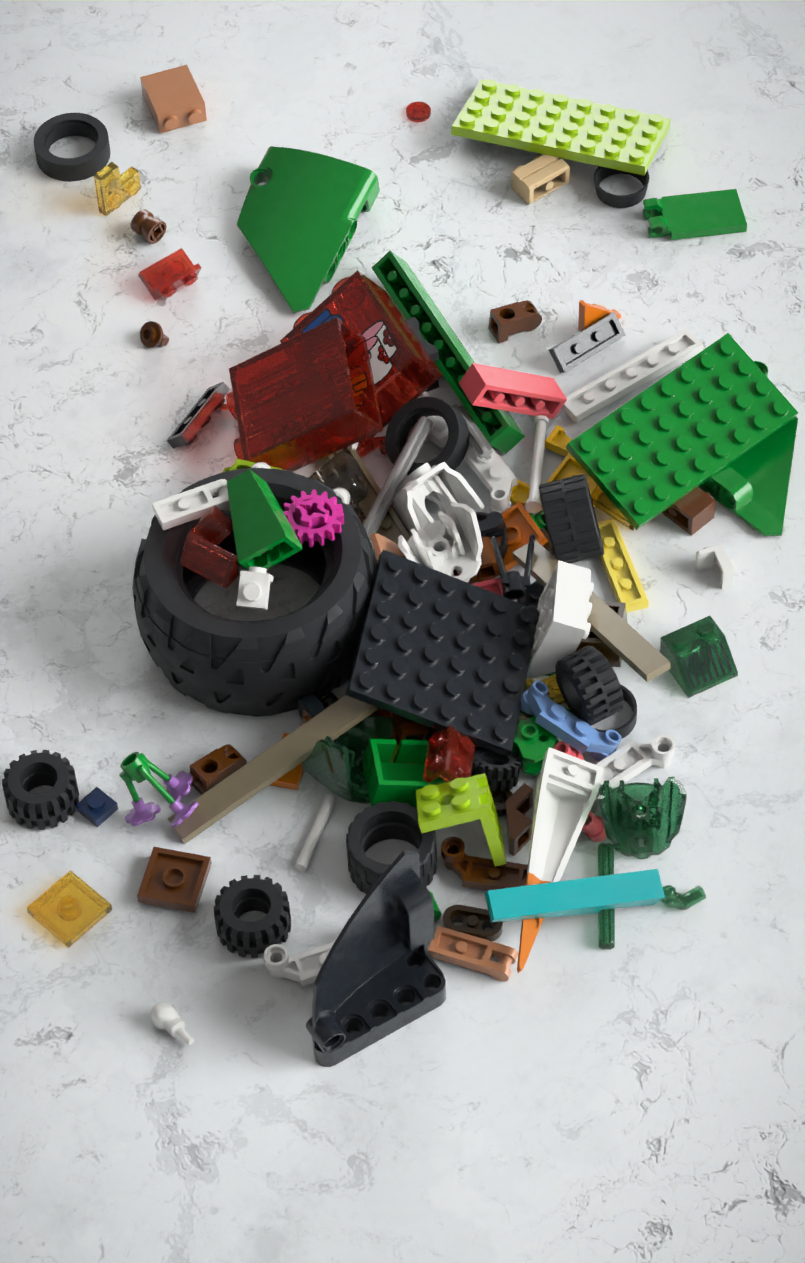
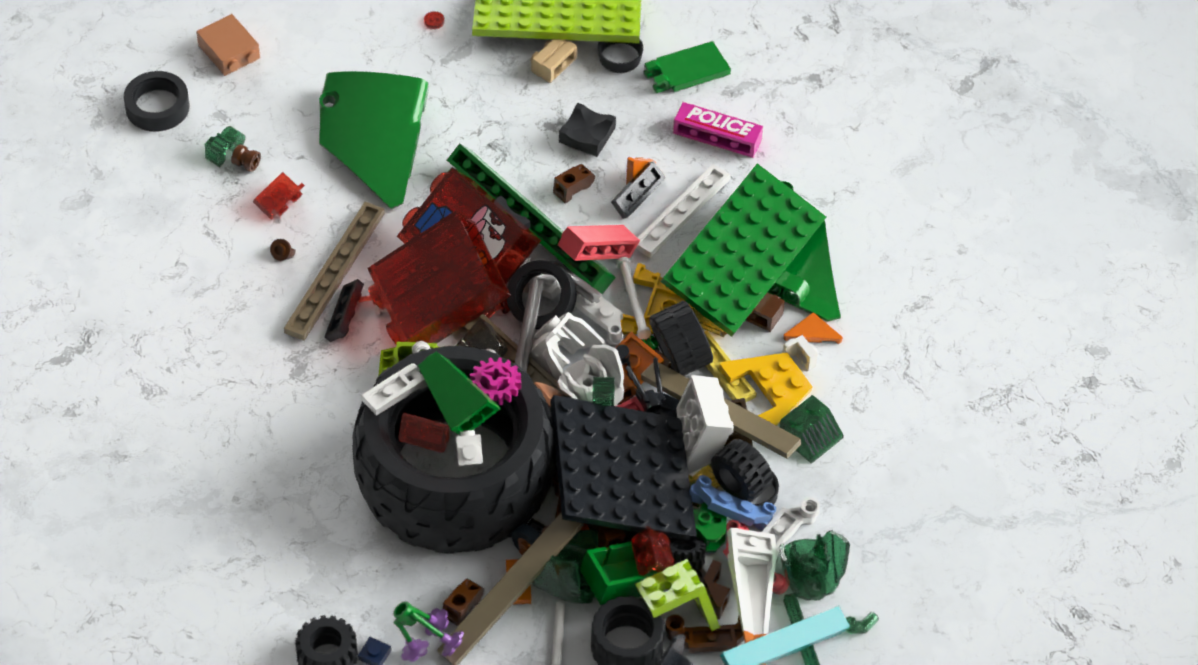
camera: 20 degrees left, 0 degrees up
(114, 188) = (206, 127): clear yellow plate -> none
(120, 206) = (216, 146): none -> clear green leg
(203, 369) = (334, 271): none -> dark tan plate
(213, 526) = (417, 404): clear red panel -> none
(448, 559) = (603, 391): none -> clear green leg
(550, 264) = (587, 130): none -> black brick
(678, 590) = (777, 379): none -> yellow wing
(706, 291) = (718, 129): none -> dark pink brick
(743, 543) = (813, 330): none -> orange tile

